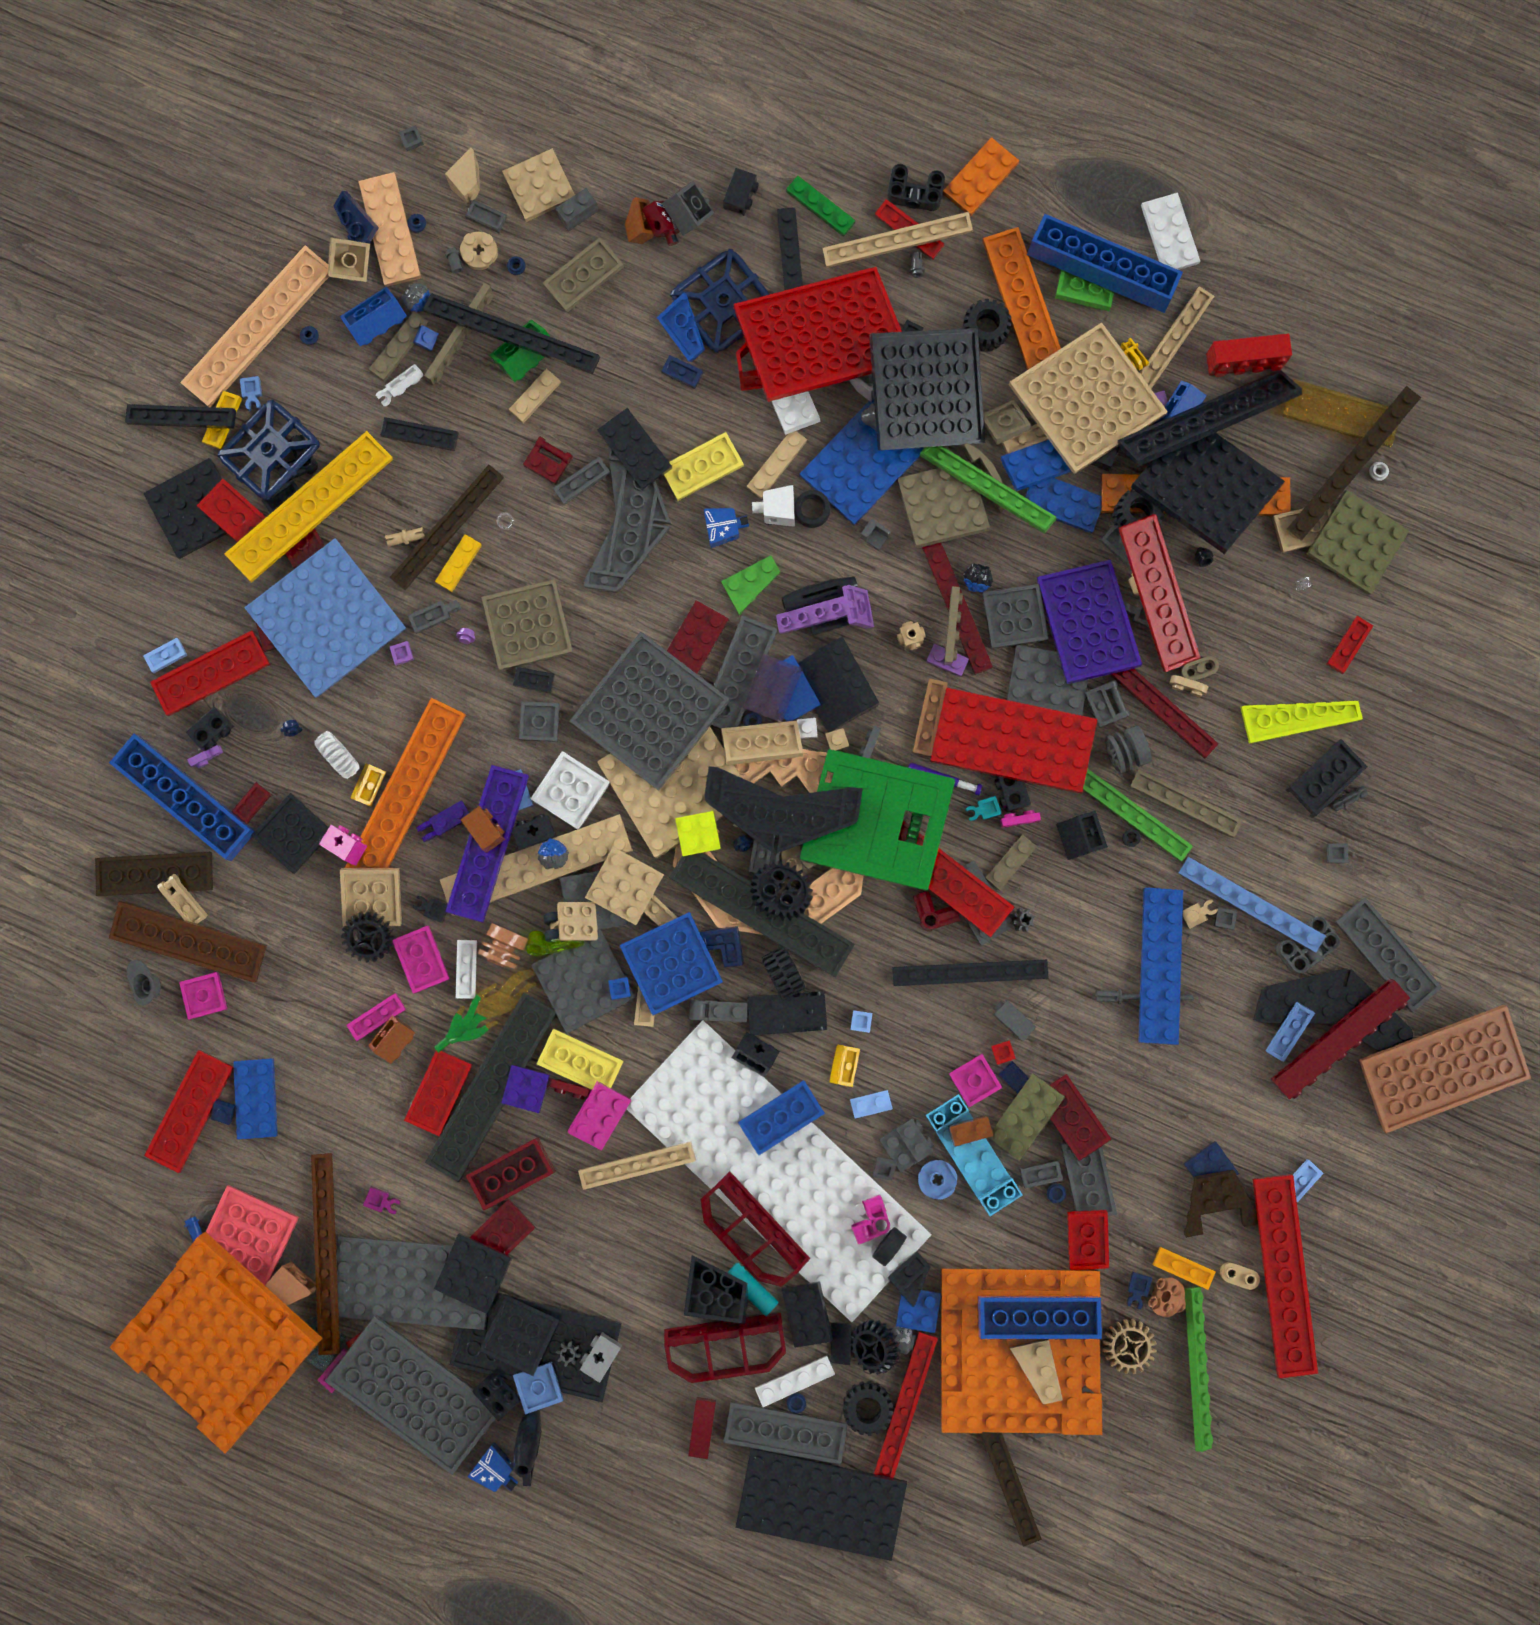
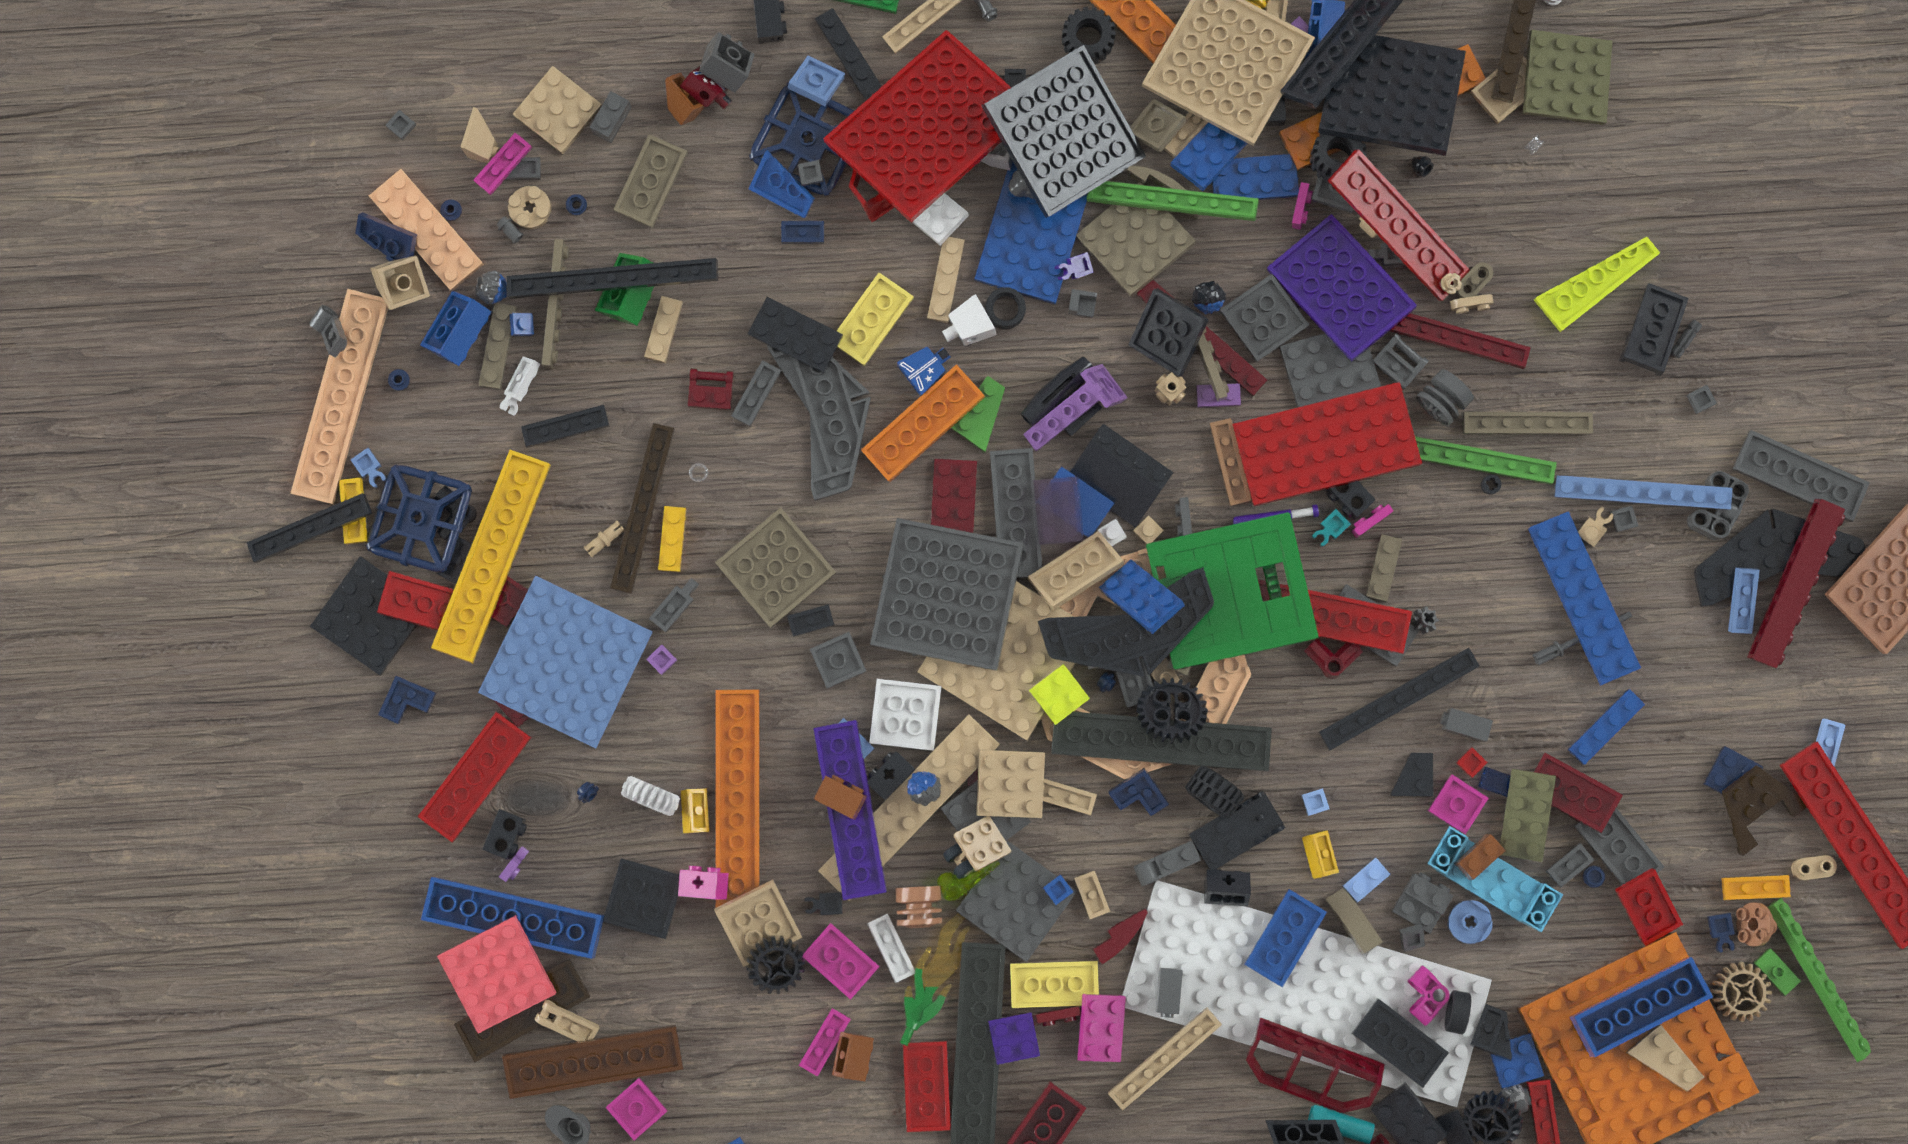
camera: 30 degrees left, 0 degrees up
(146, 835) = (496, 974): none -> coral plate
(165, 655) = (418, 781): light blue plate -> none
(187, 581) = (403, 694): none -> dark blue plate
(251, 803) = (585, 888): dark red plate -> none
(275, 263) = (330, 327): none -> dark grey plate
(444, 821) = (793, 807): dark purple hinge -> none
(466, 635) = (718, 609): medium lavender plate -> none
(474, 205) = (502, 163): none -> dark pink plate
(650, 1050) = (1120, 936): none -> dark red slope
(666, 1113) = (1169, 992): none -> dark grey brick
(671, 963) = (1097, 839): blue plate -> none
(700, 567) = (923, 423): none -> orange plate
(710, 327) = (810, 173): none -> dark grey plate
(752, 257) = (816, 80): none -> medium blue plate
(752, 715) = (1057, 547): dark blue plate -> none
(802, 787) = (1141, 596): none -> blue plate
(831, 1248) = (1400, 1042): none -> black plate
(843, 1131) = (1353, 921): none -> dark tan slope
(886, 503) = (1076, 267): none -> plate
(931, 589) = (1168, 332): none -> black plate
(952, 1041) = (1415, 777): none -> black wing
(1081, 835) = (1441, 506): black slope -> none
(1085, 547) = (1304, 197): none -> dark pink plate
(1127, 1078) = (1606, 727): none -> blue plate
(1167, 1344) = (1777, 971): none -> bright green plate
(1175, 661) = (1446, 283): none -> tan plate
(1349, 644) = (1610, 184): red plate -> none

